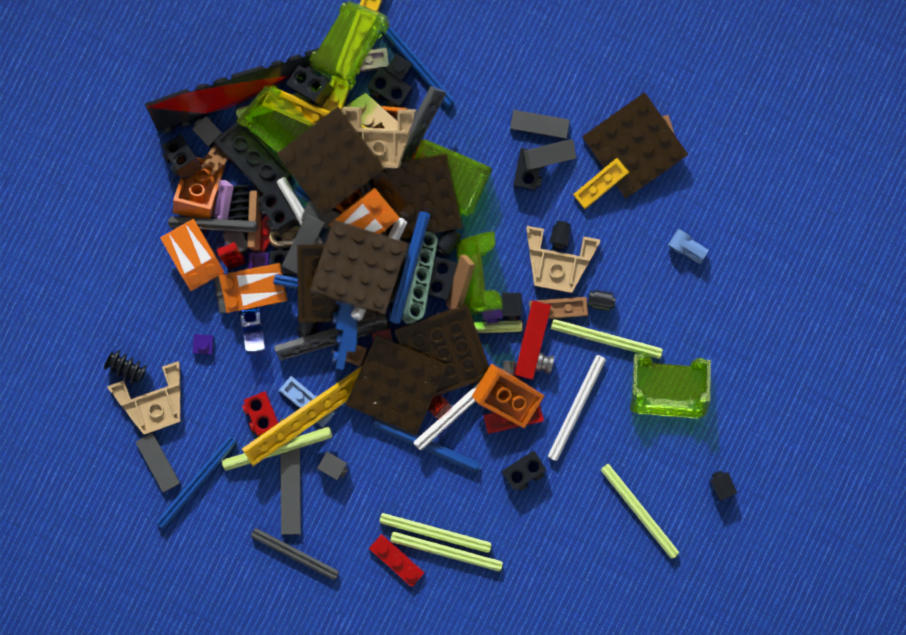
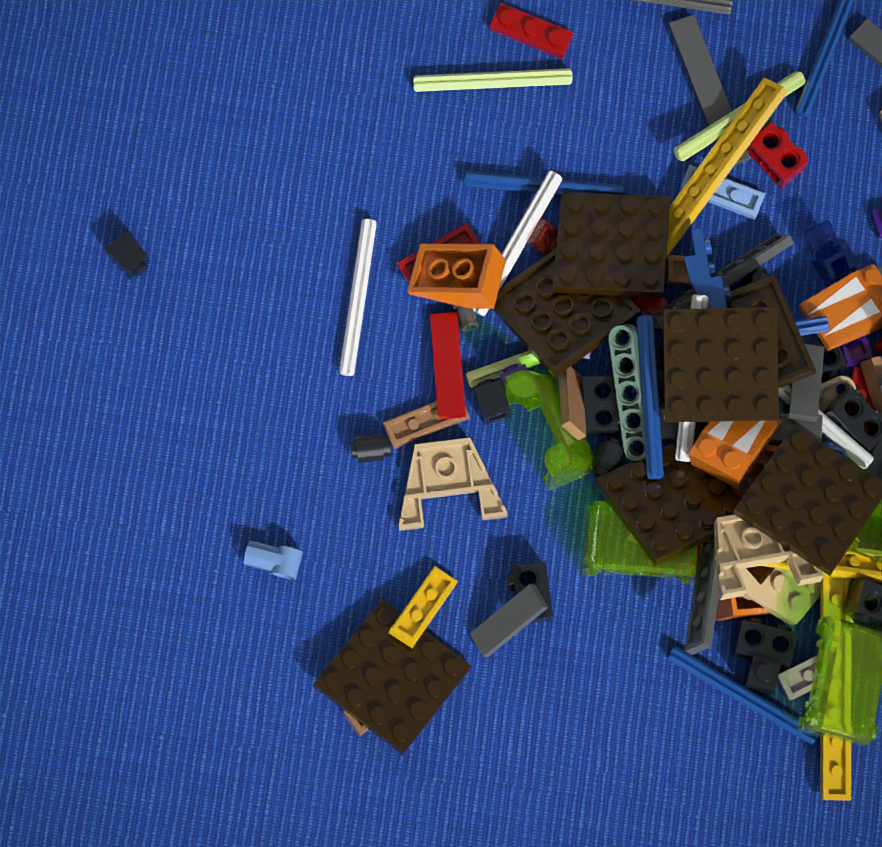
camera: 165 degrees right, 10 degrees down
(333, 466) = (657, 118): dark grey brick -> none
(446, 551) = (470, 61): yellowish green axle -> none
(522, 467) = (407, 194): black brick -> none
(539, 124) = (536, 664): dark grey tile -> none
(544, 363) = (420, 339): flat silver wheel -> none
(560, 235) = (456, 518): black brick -> none
(606, 338) = (346, 400): yellowish green axle -> none
(640, 512) = (230, 191): yellowish green axle -> none
(670, 388) = (239, 362): clear neon green windscreen -> none

